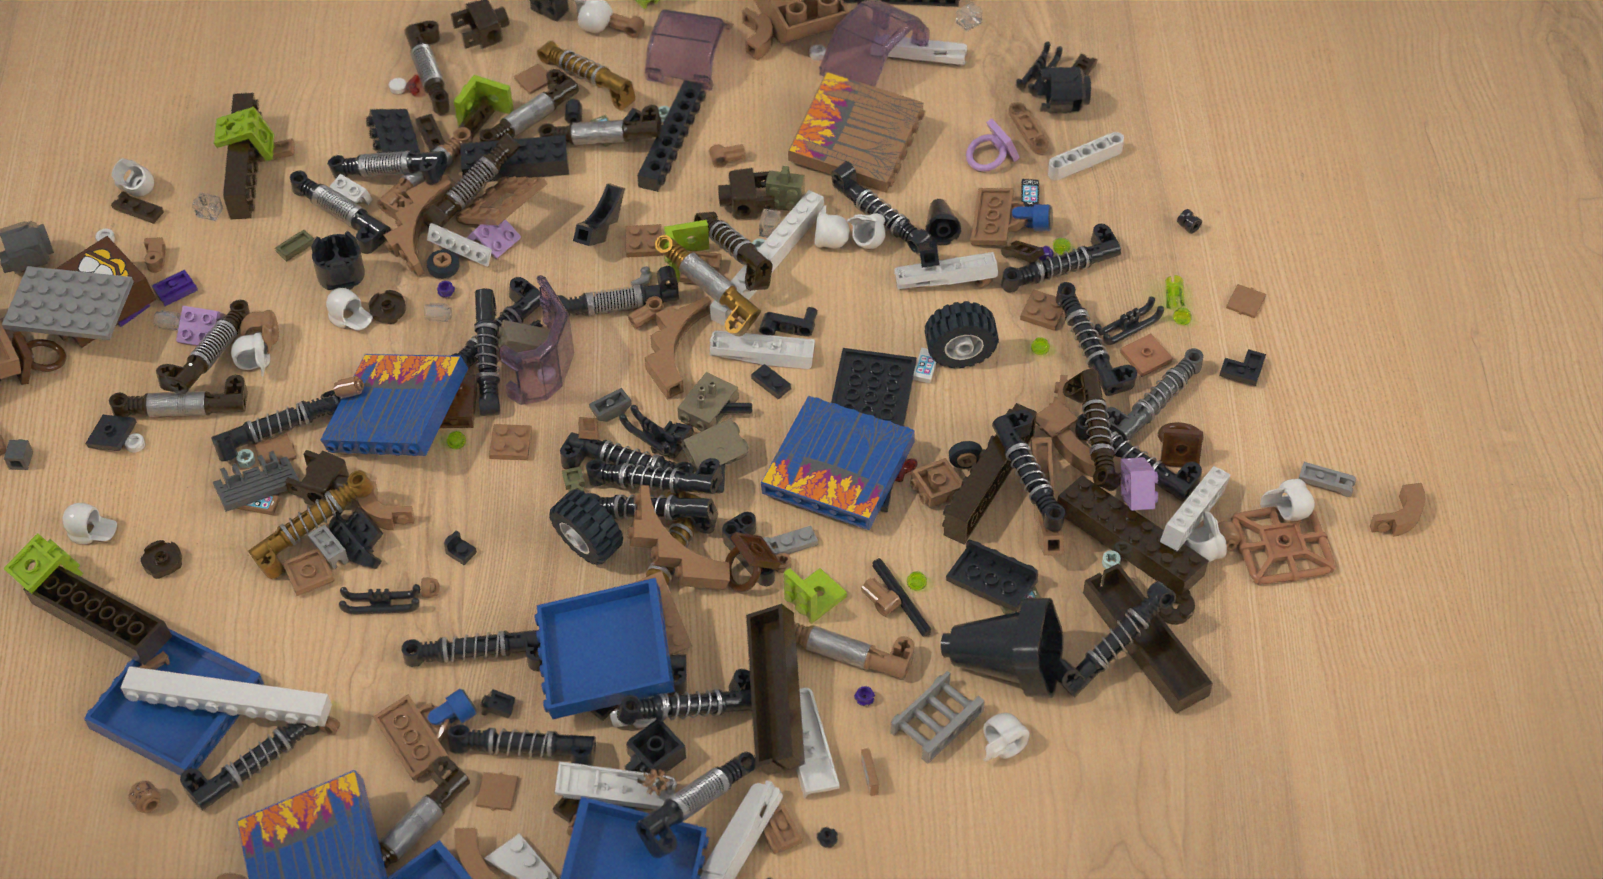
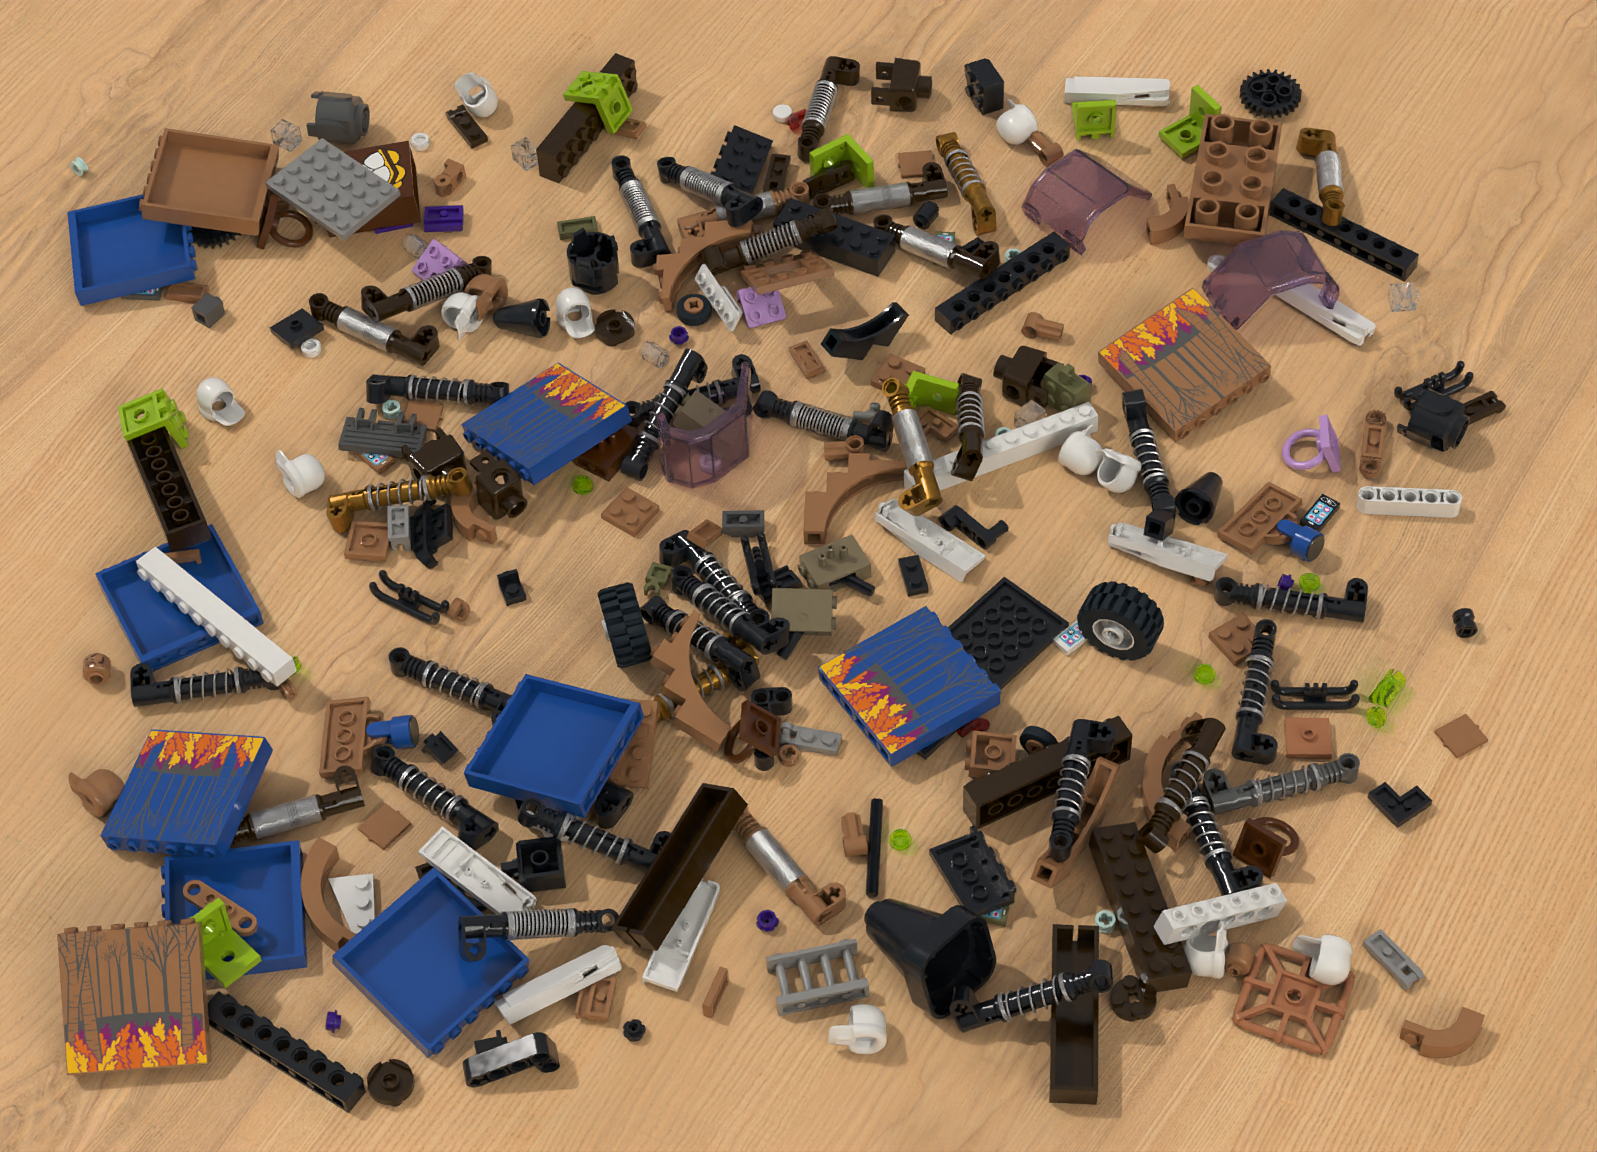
camera: 35 degrees right, 0 degrees up
(165, 567) = (260, 474): dark brown plate -> none
(208, 548) = (301, 474): none -> white piece
(307, 333) = (524, 318): none -> black cone
(348, 387) = (516, 386): medium nougat brick -> none
(351, 190) = (659, 197): white bracket -> none
(393, 473) = (495, 497): none -> dark brown piece
(563, 260) = (806, 359): none -> medium nougat plate
(660, 785) = (517, 889): medium nougat gear -> none
(804, 595) = (782, 798): lime bracket -> none
(1022, 251) = (1258, 569): dark brown plate -> none
(1055, 419) = (1153, 752): medium nougat piece -> none
(1138, 483) = (1179, 858): lavender brick -> none

